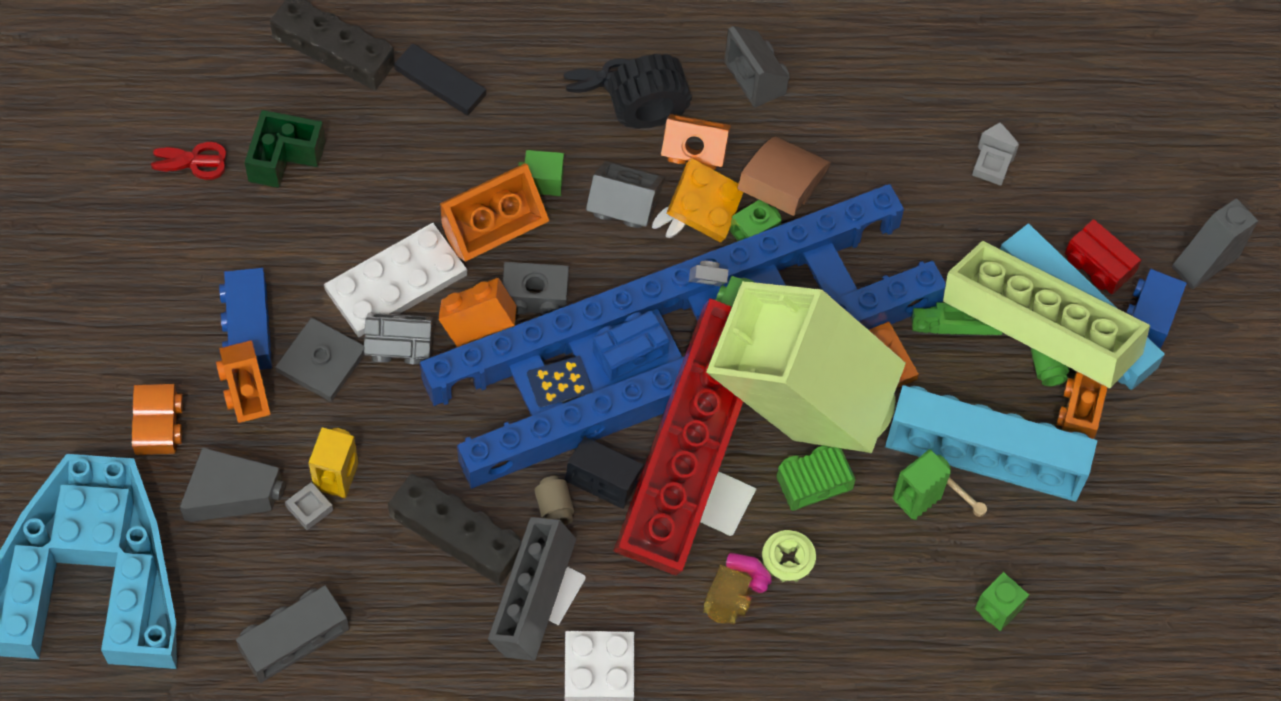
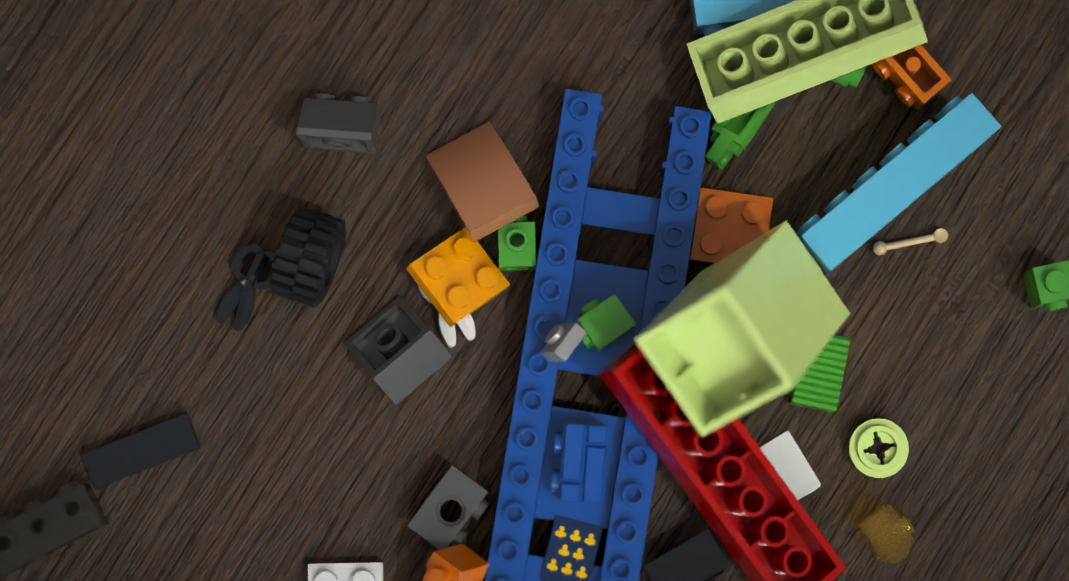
camera: 50 degrees left, 20 degrees up
(492, 213) = (351, 504): orange slope -> none
(546, 171) = (324, 421): bright green brick -> none
(713, 135) = (390, 225): brick -> none
(753, 567) = (868, 491): dark pink arm -> none
(921, 484) = (896, 278): bright green brick -> none

